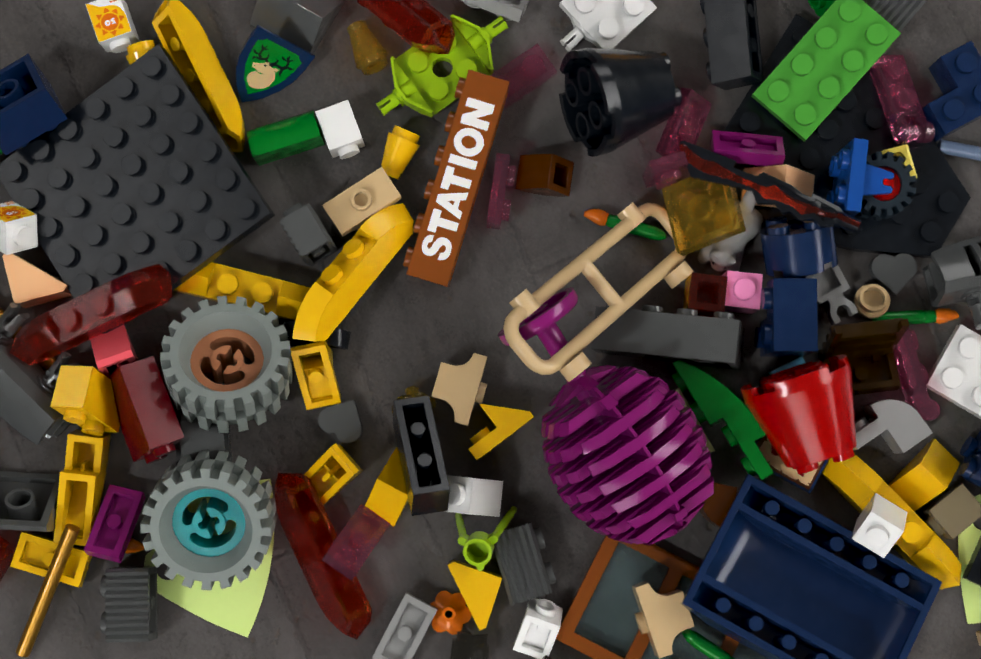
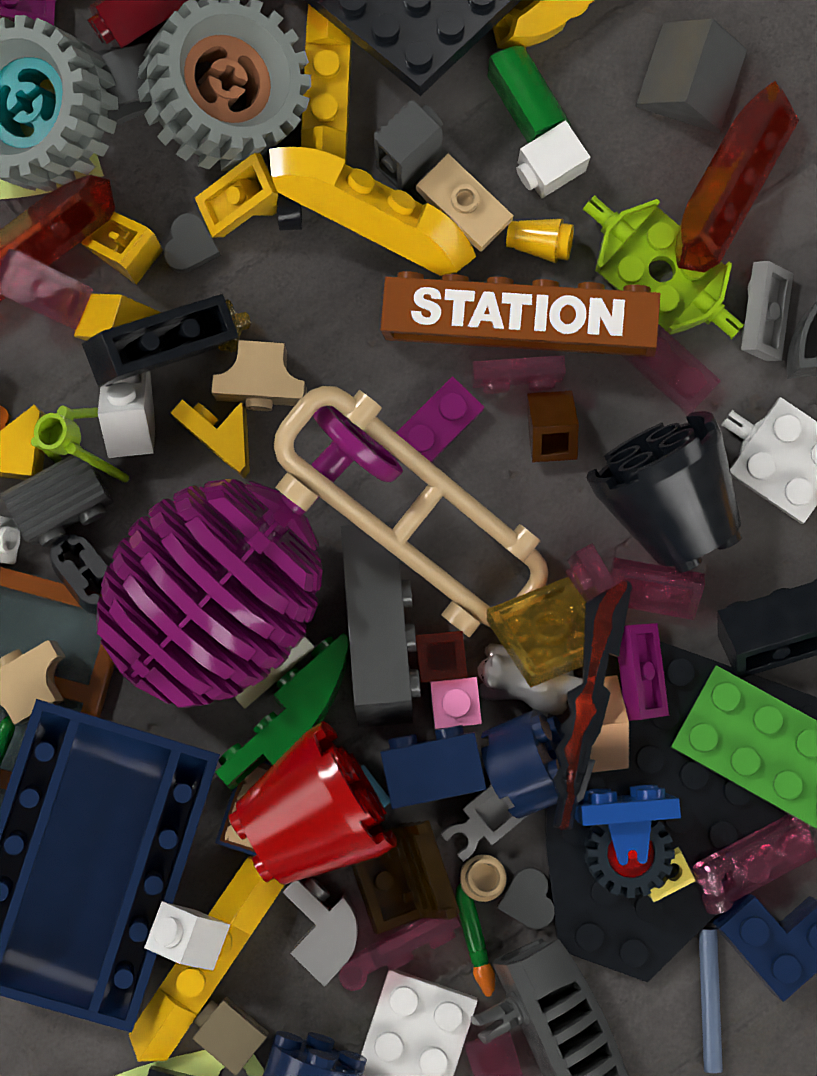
camera: 80 degrees right, 0 degrees up
(268, 65) = (613, 52): shield -> none
(367, 50) = (662, 171): clear yellow cone -> none
(522, 259) = (441, 419): none -> magenta plate
(588, 561) = (75, 579): none -> black beam
(643, 230) = (514, 511): green piece -> none
(718, 504) = (183, 725): reddish brown brick -> none
(925, 475) = (270, 990): yellow slope -> none

